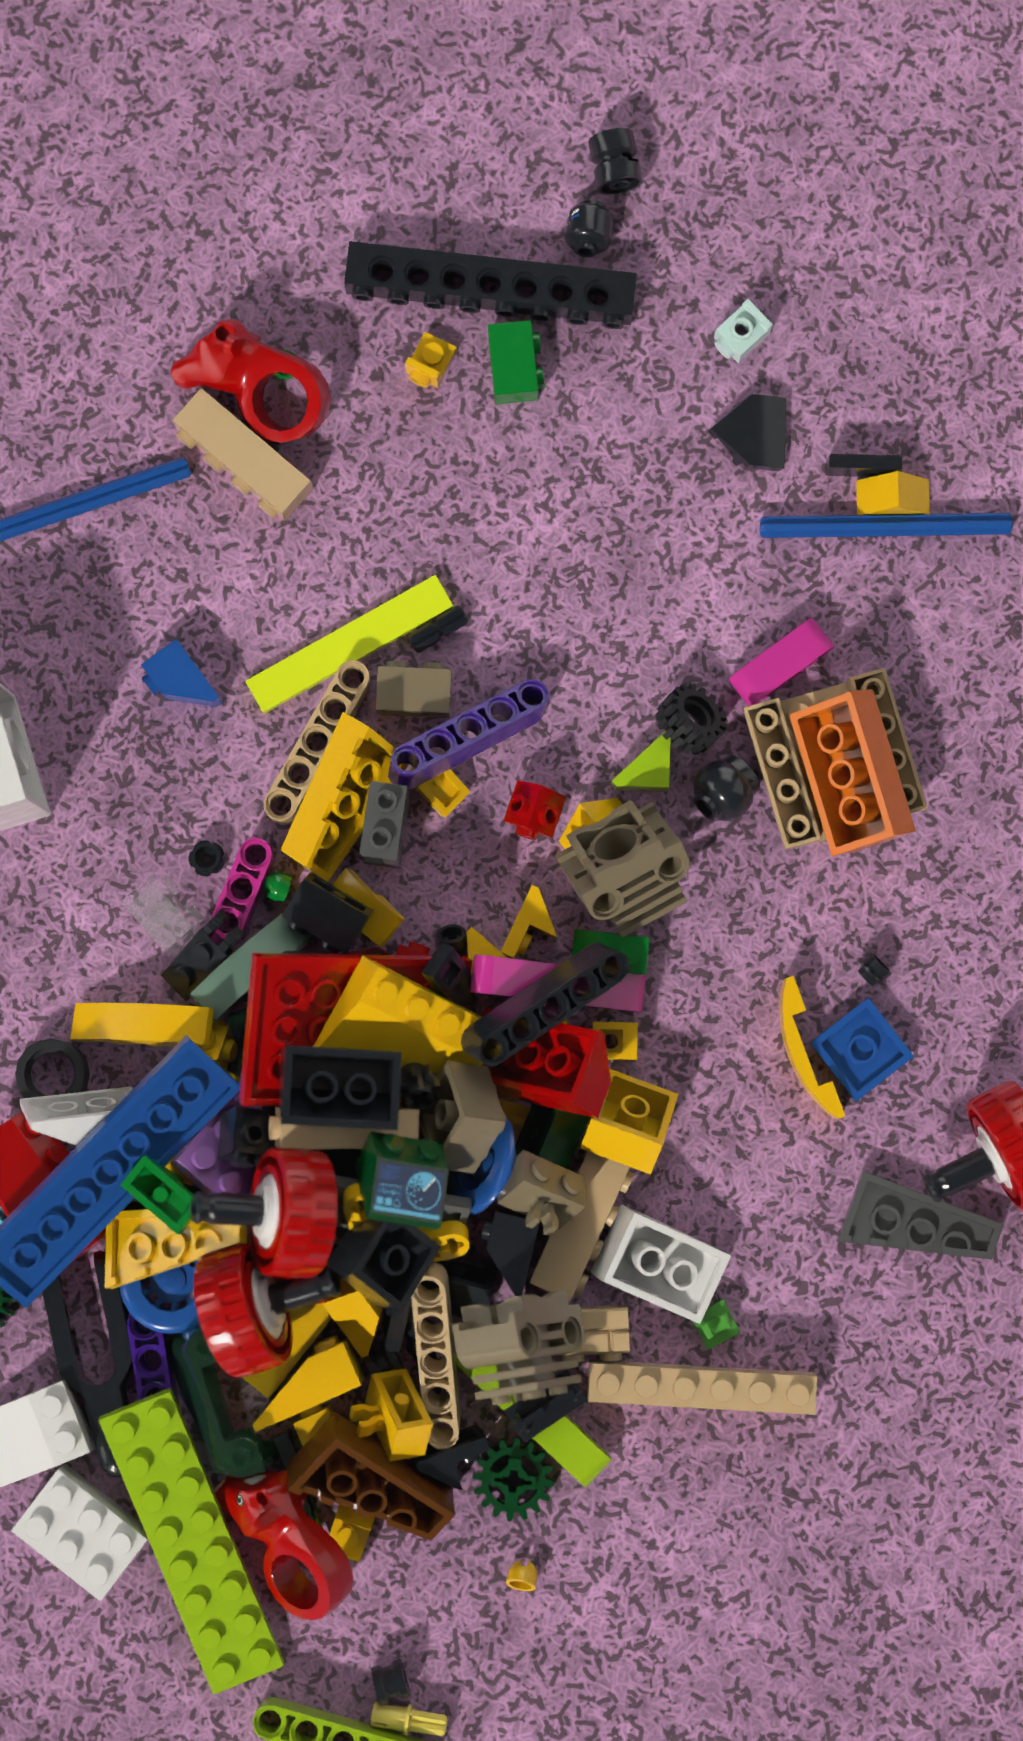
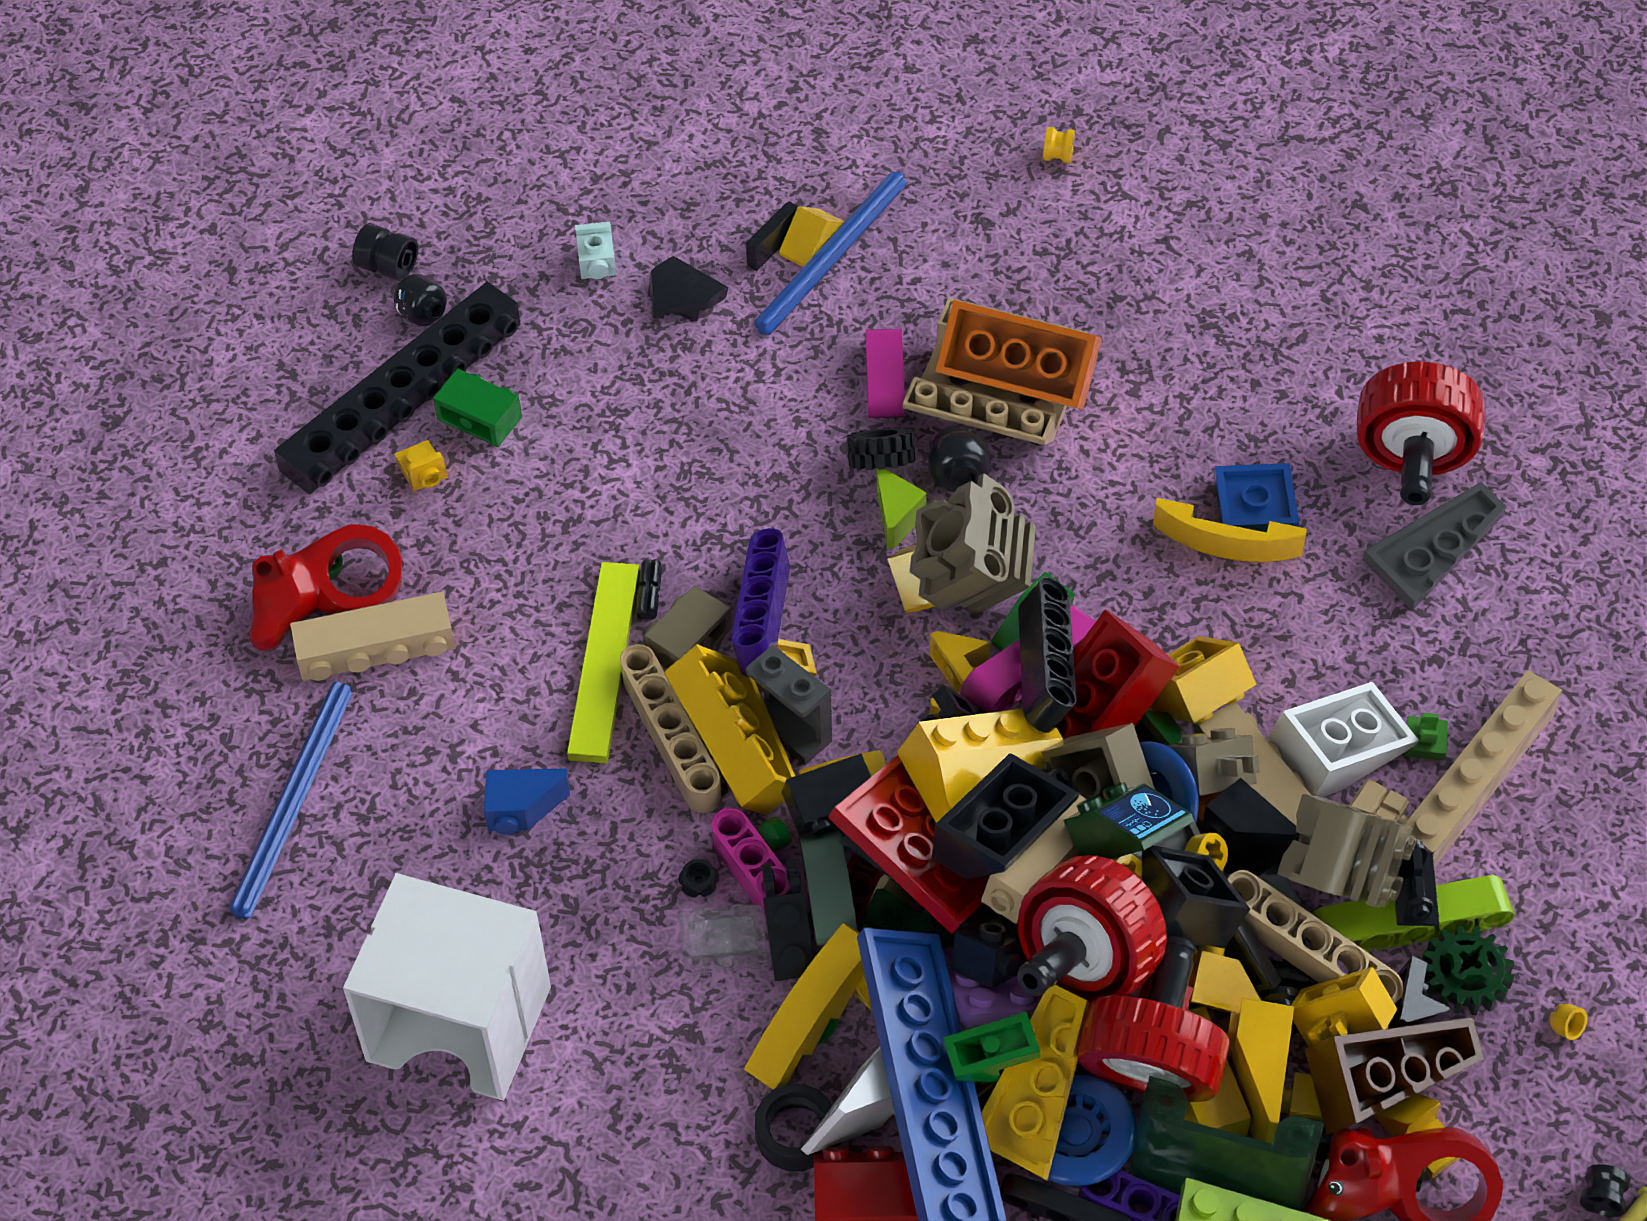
camera: 55 degrees left, 30 degrees down
(534, 810) = (865, 601): red brick -> none
(874, 970) = (1193, 453): black plate -> none

